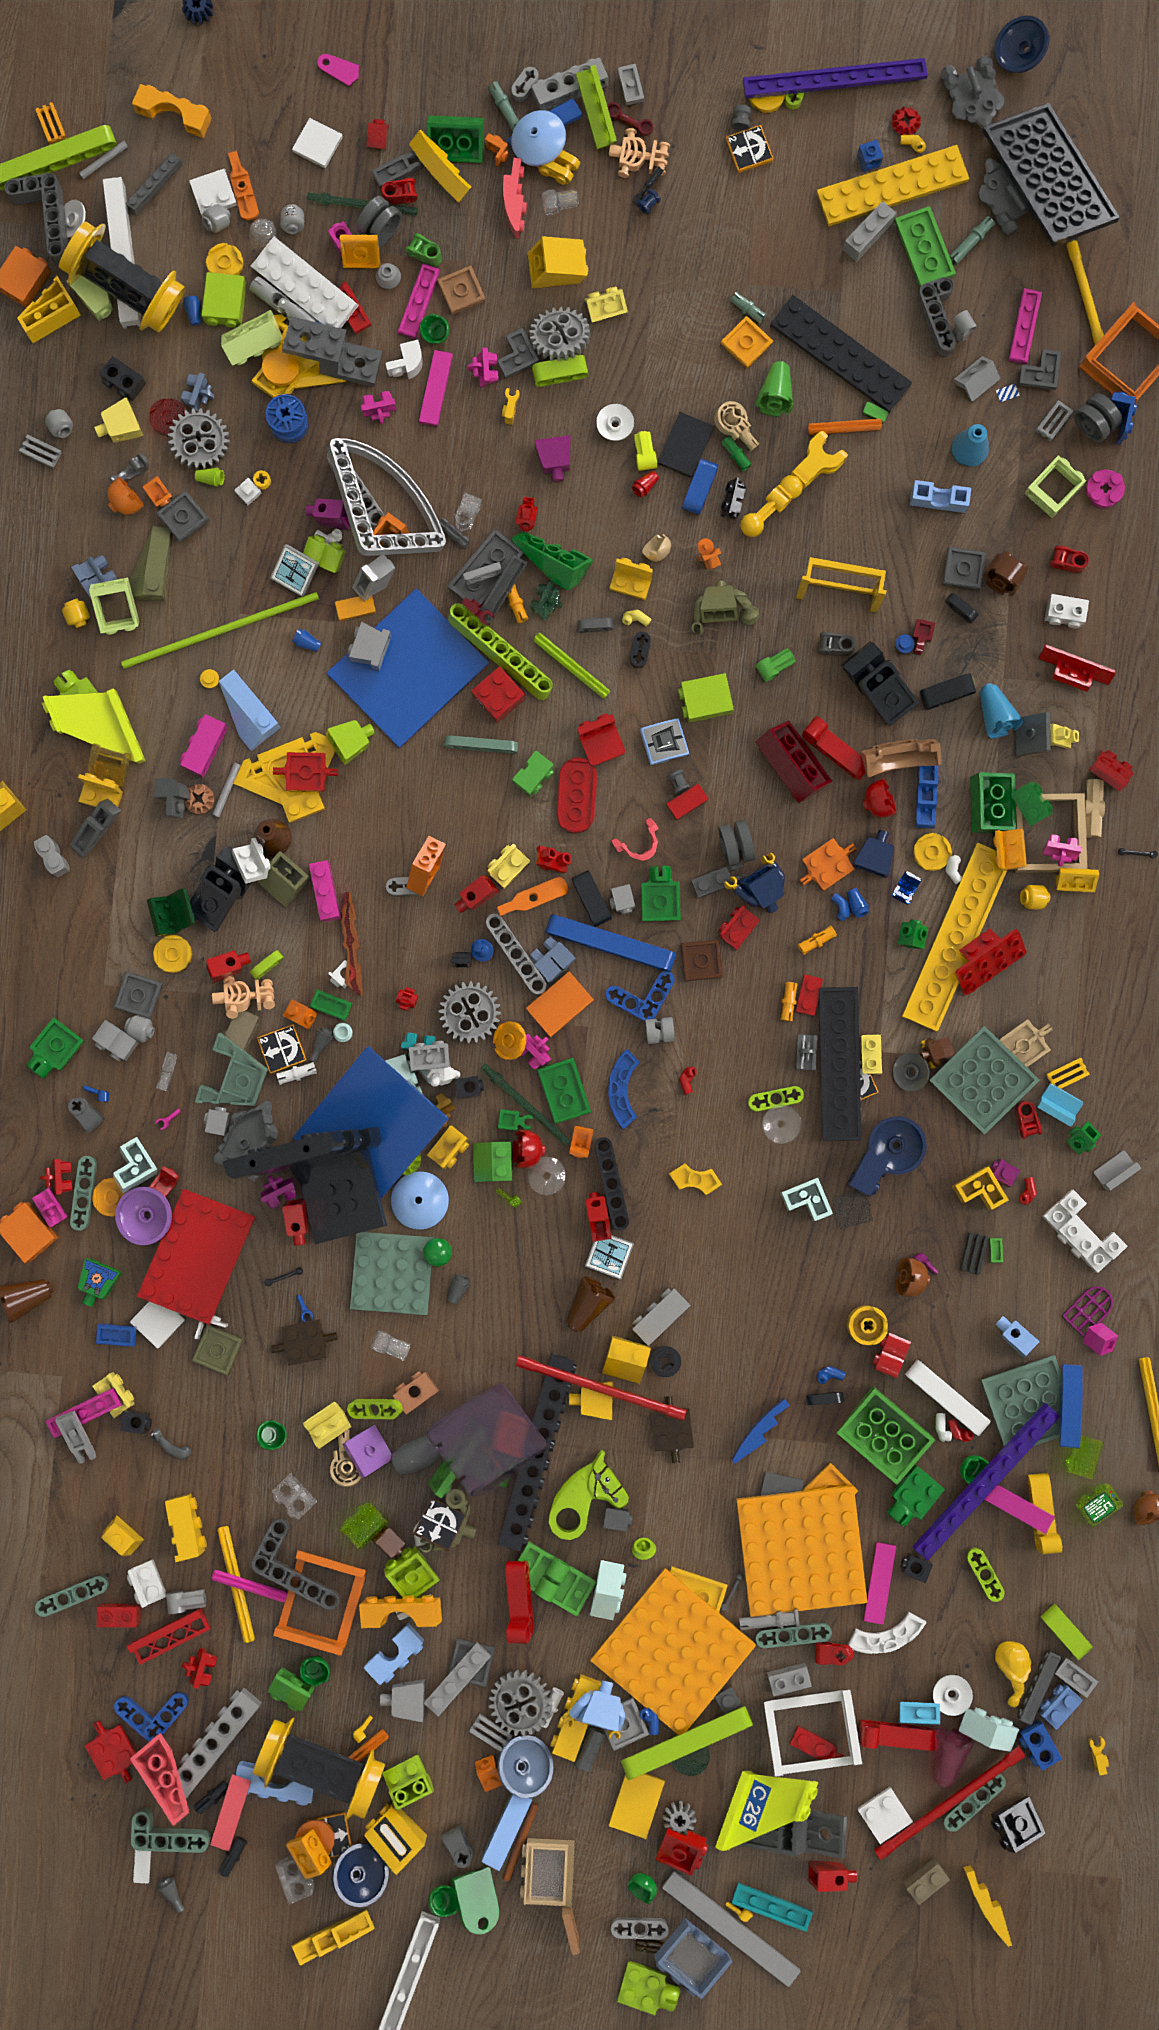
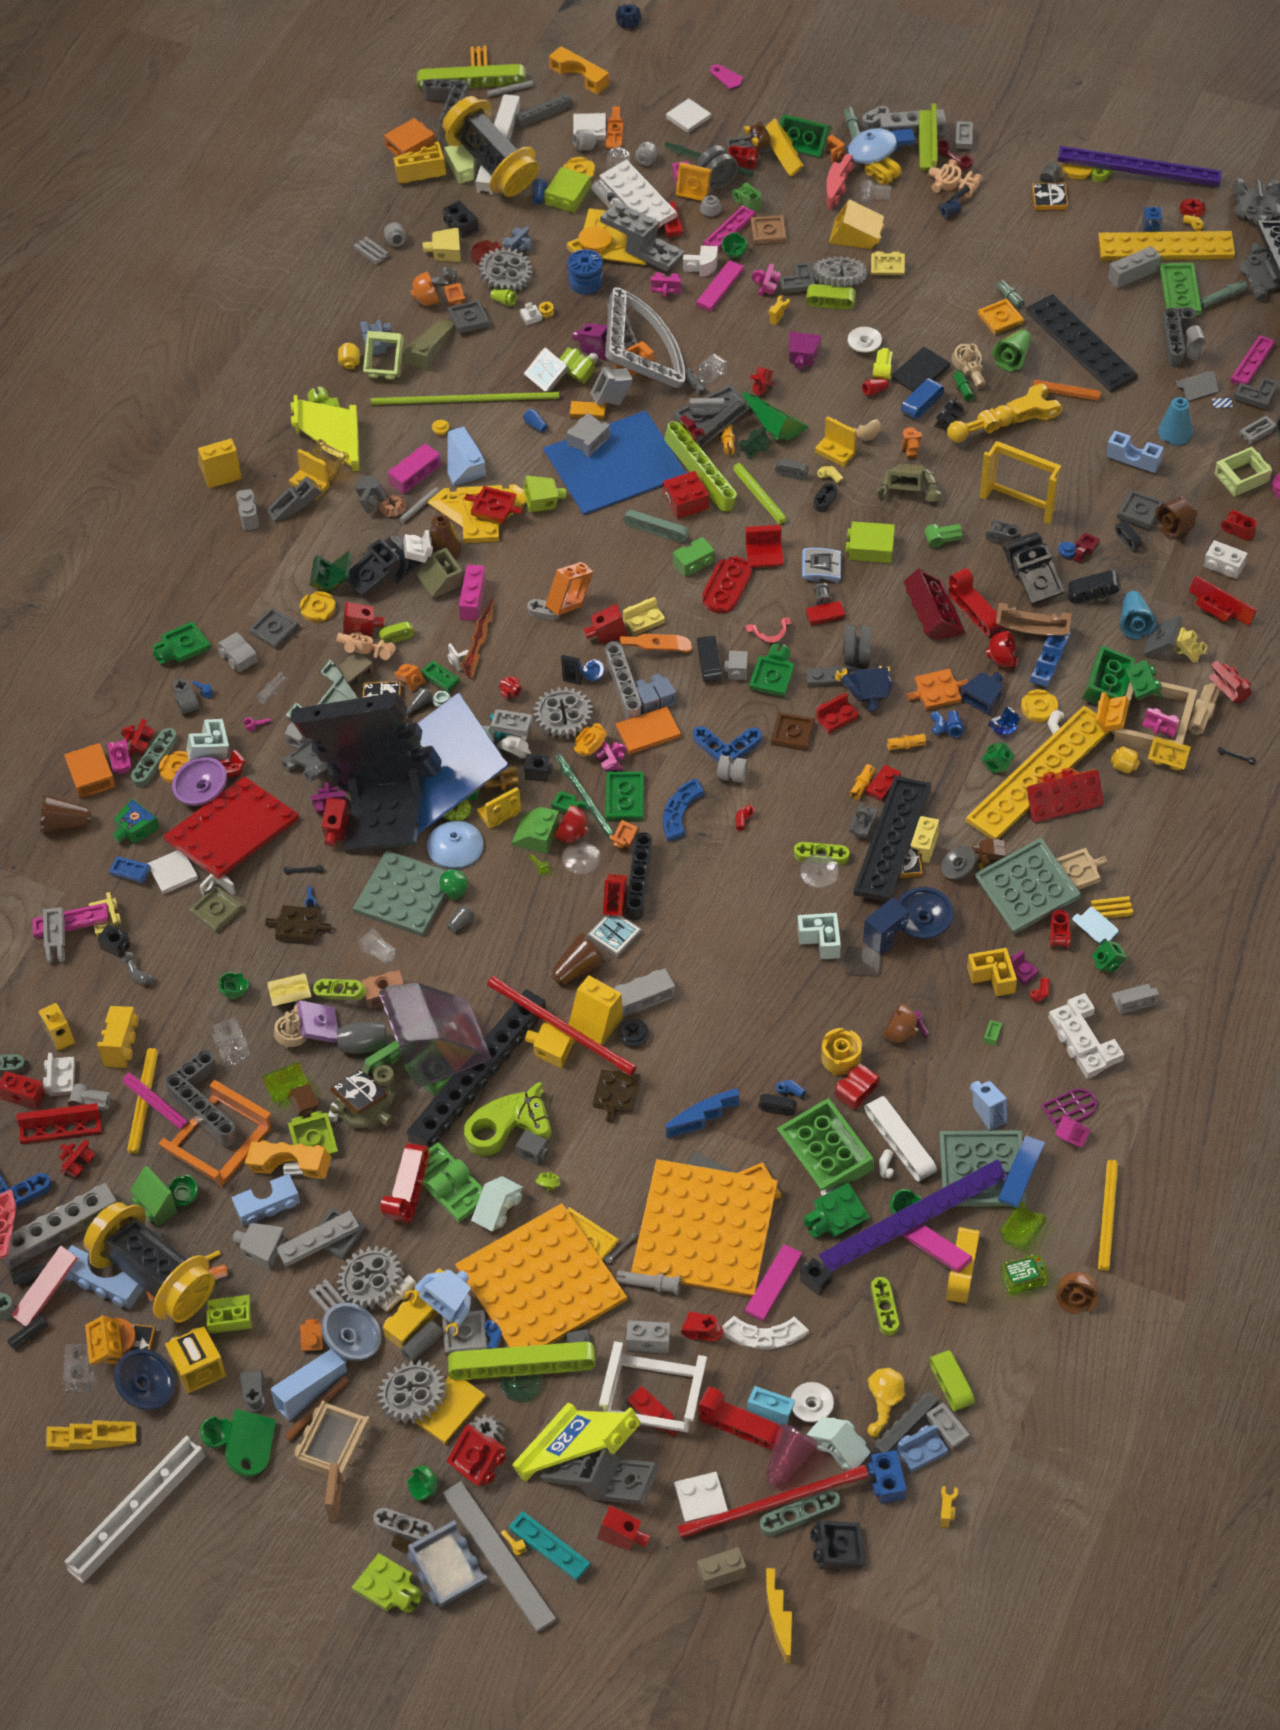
camera: 20 degrees right, 30 degrees down
(139, 1028) = (263, 648): light grey head -> none
(251, 338) = (578, 215): yellowish green slope -> none
(377, 134) = (739, 119): red bracket -> none
(409, 162) = (759, 136): none -> reddish brown piece
(551, 859) = (683, 619): red hips -> none
(593, 1786) = (412, 1392): none -> light grey gear
(610, 943) = (714, 695): blue beam -> none
(686, 1177) = (727, 899): yellow tile -> none
(793, 1635) = (669, 1299): sand green beam -> none
(875, 412) = (1096, 385): bright green piece -> none
(959, 1433) = (900, 1174): red arm -> none
(982, 1253) = (977, 1016): pearl dark grey tile -> none

